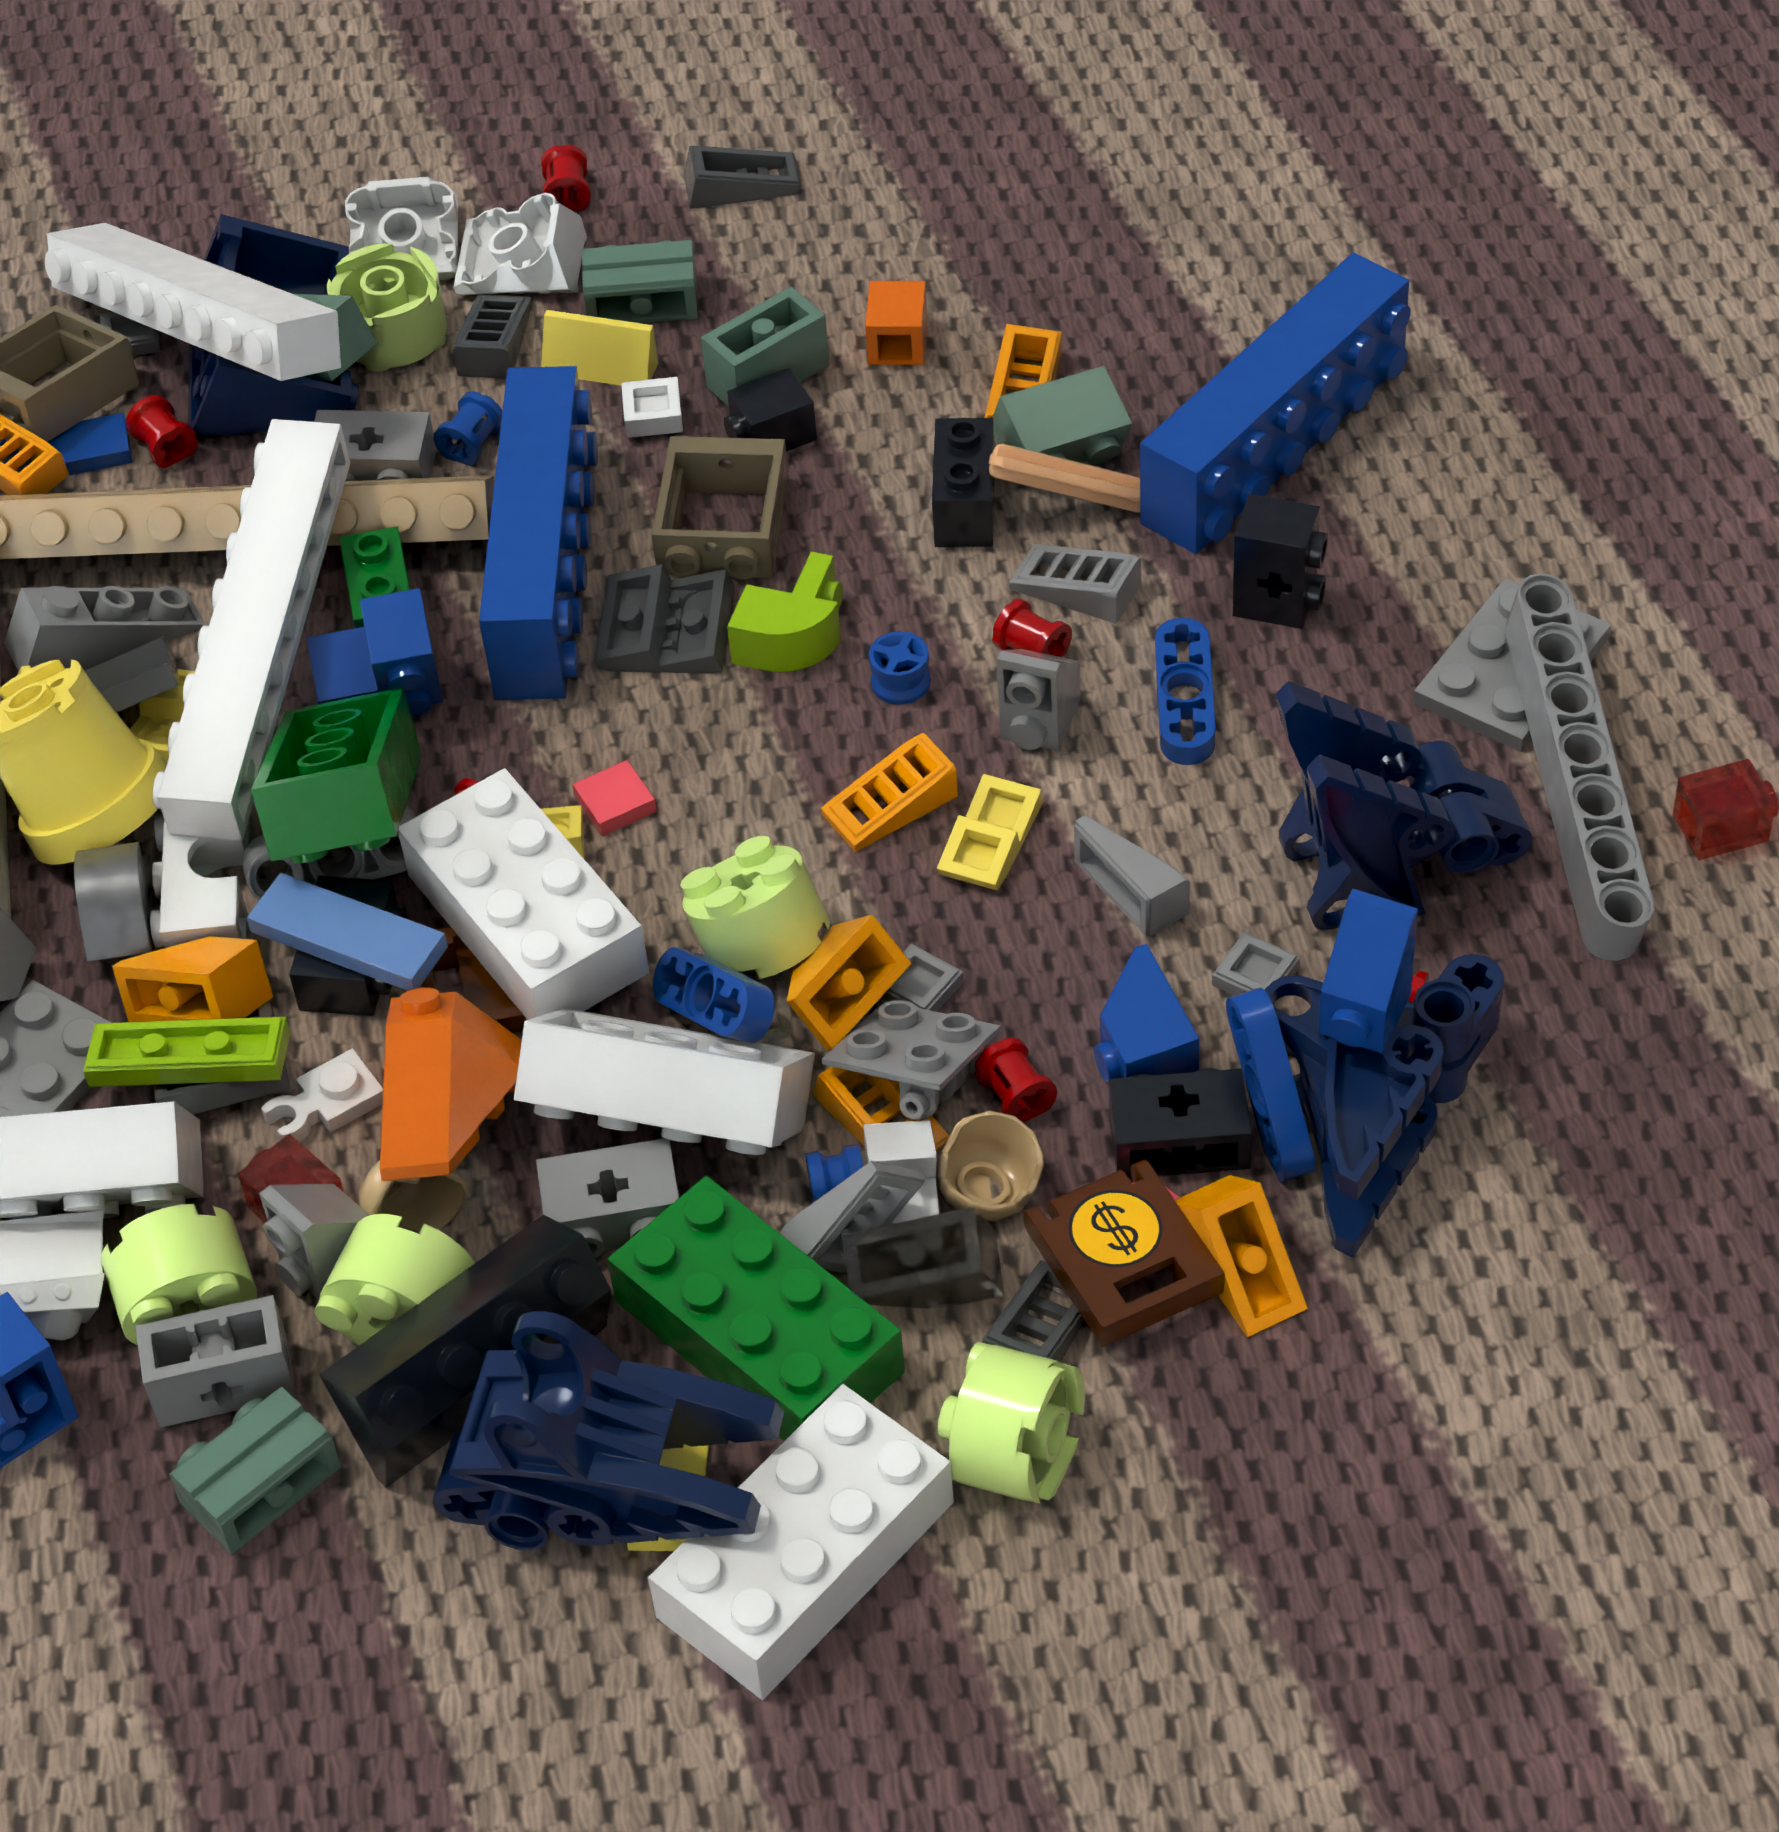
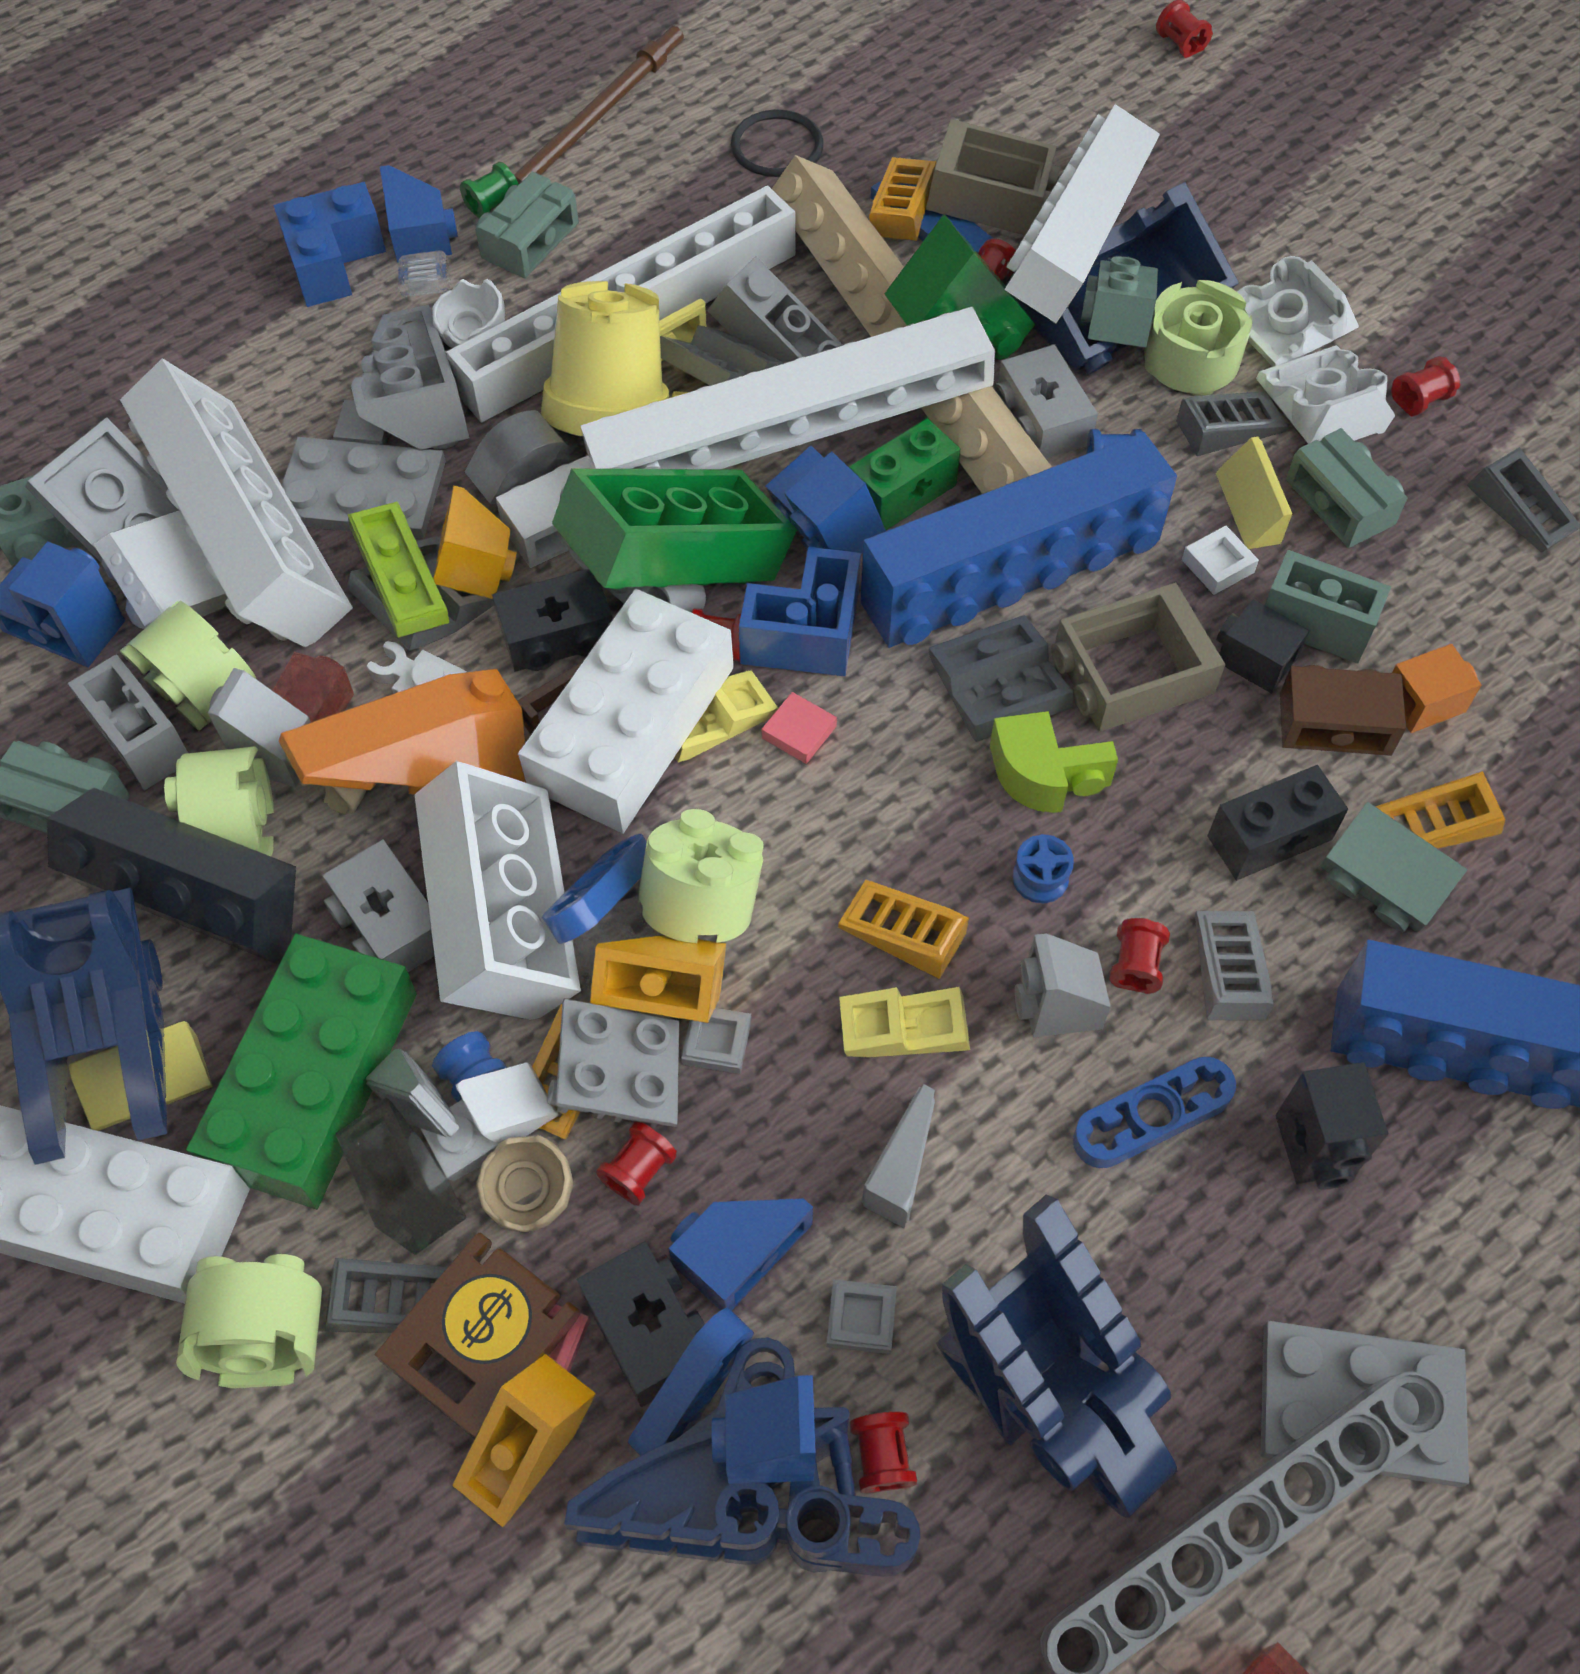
camera: 60 degrees right, 10 degrees up
(212, 433) = (952, 276): none -> green wedge
(347, 932) = (538, 611): medium blue tile -> none
(503, 720) = (804, 626): none -> blue brick
(877, 391) = (1342, 710): none -> reddish brown brick
(1065, 477) = (1322, 893): light nougat axle -> none

